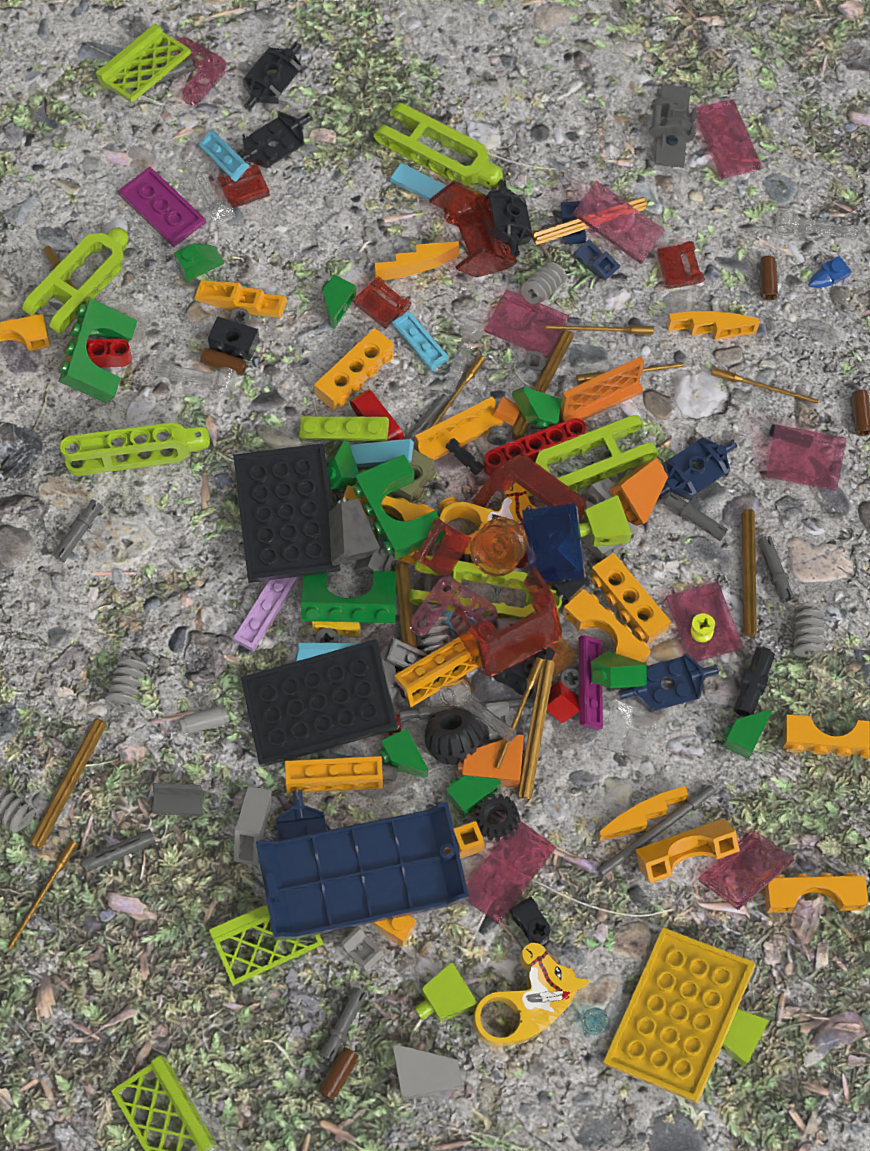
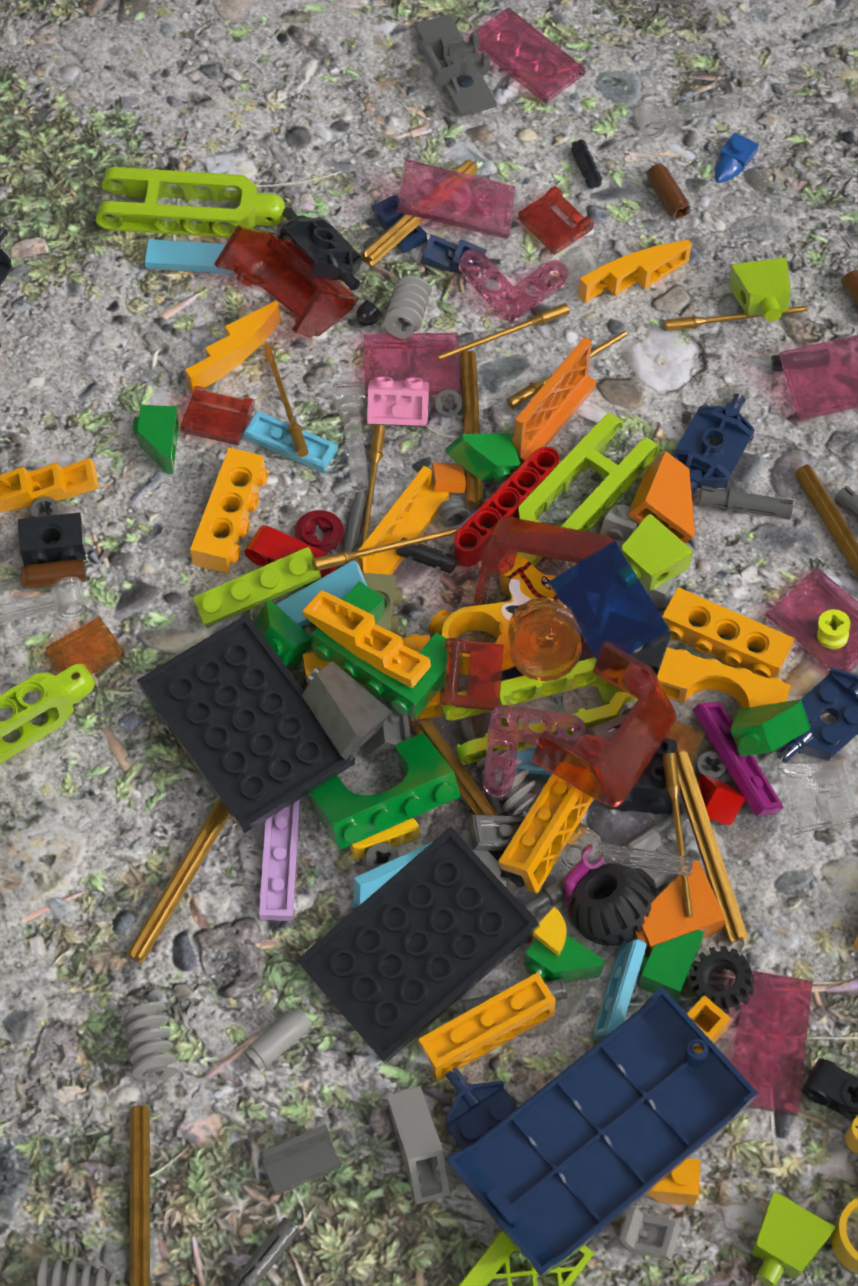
camera: 25 degrees left, 5 degrees down
(195, 596) = (178, 883): none -> pearl gold axle
(219, 419) = (87, 645): none -> clear orange plate
(385, 494) = (365, 639): none -> light orange slope
(398, 403) = (329, 525): none -> dark red gear
(404, 735) = (552, 931): none -> yellow tile
(405, 434) = (345, 557): none -> pearl gold piece
(425, 335) = (294, 429): none -> pearl gold piece
(431, 790) = (619, 988): none -> medium azure tile
(444, 705) = (579, 871): none -> magenta arm
(502, 345) = (398, 401): none -> bright pink bracket
(516, 276) = (368, 313): none -> black hinge
(623, 306) = (514, 294): none -> clear pink beam
(723, 234) = (586, 164): none -> black axle
(793, 374) = (762, 287): none -> lime torso

